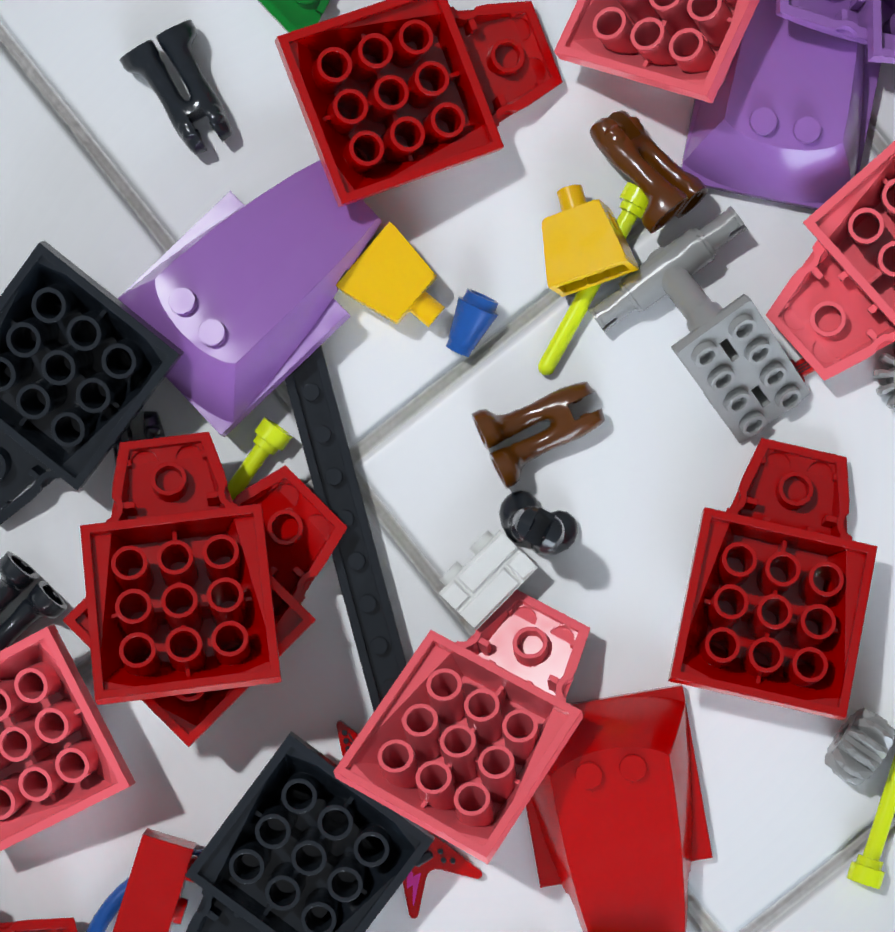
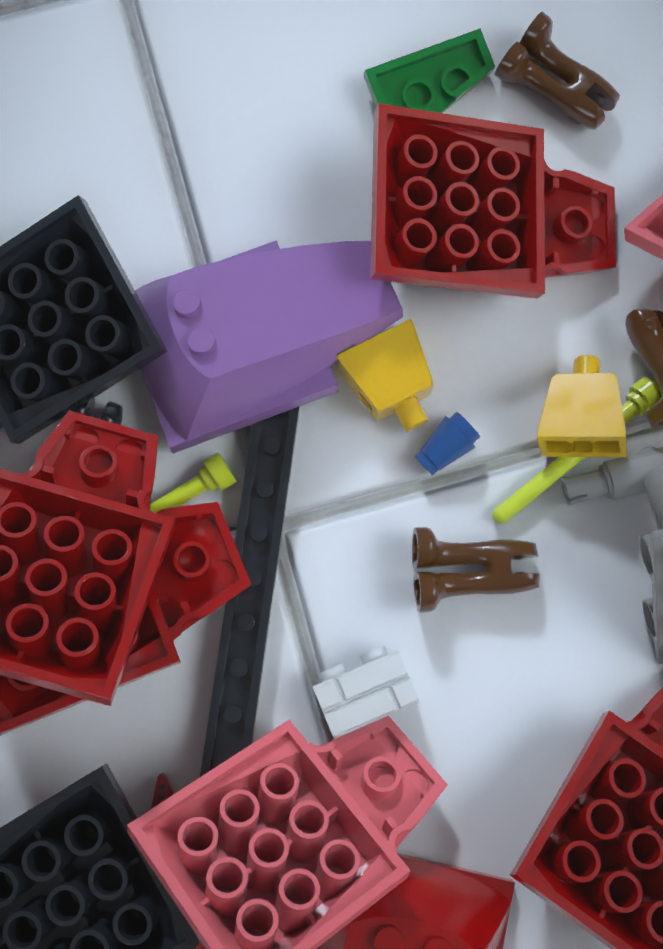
camera: 20 degrees right, 10 degrees down
(202, 102) = (265, 160): black piece -> none
(526, 521) = (444, 667): black piece -> none

